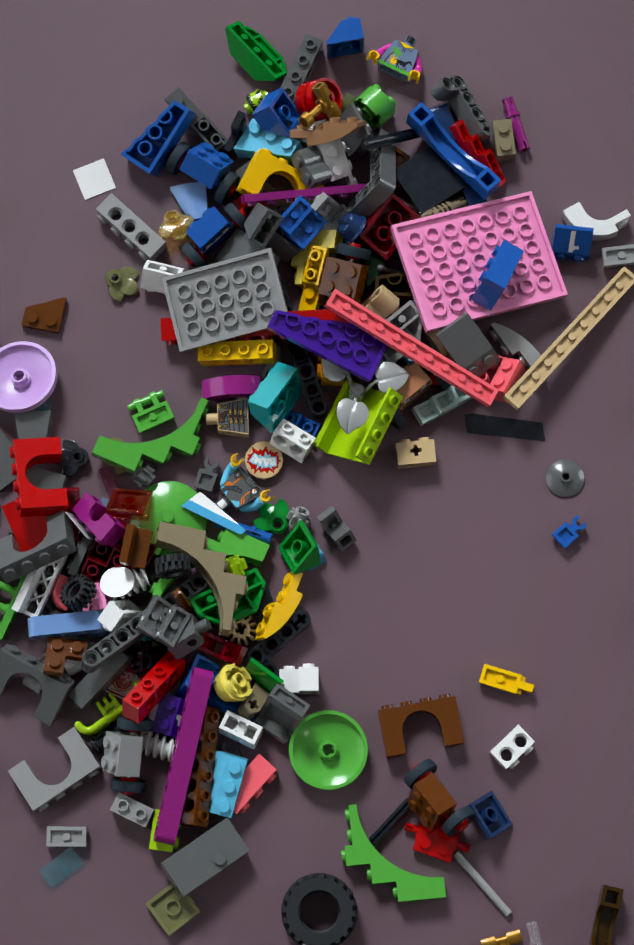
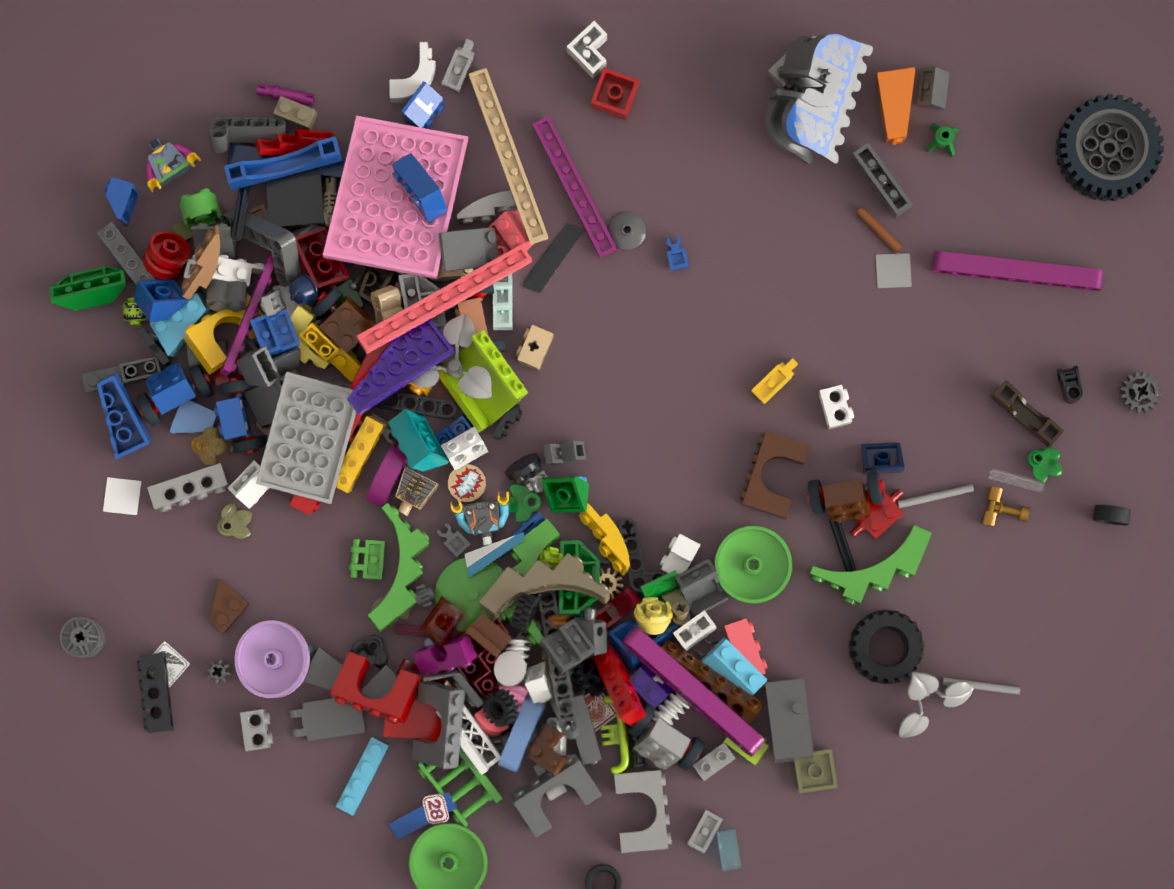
camera: 60 degrees left, 5 degrees up
(304, 499) = (522, 467): none -> black tile
(323, 104) = (176, 254): pearl gold bar -> none
(343, 466) = (511, 417): none -> black slope
(577, 411) = (574, 187): none -> magenta plate

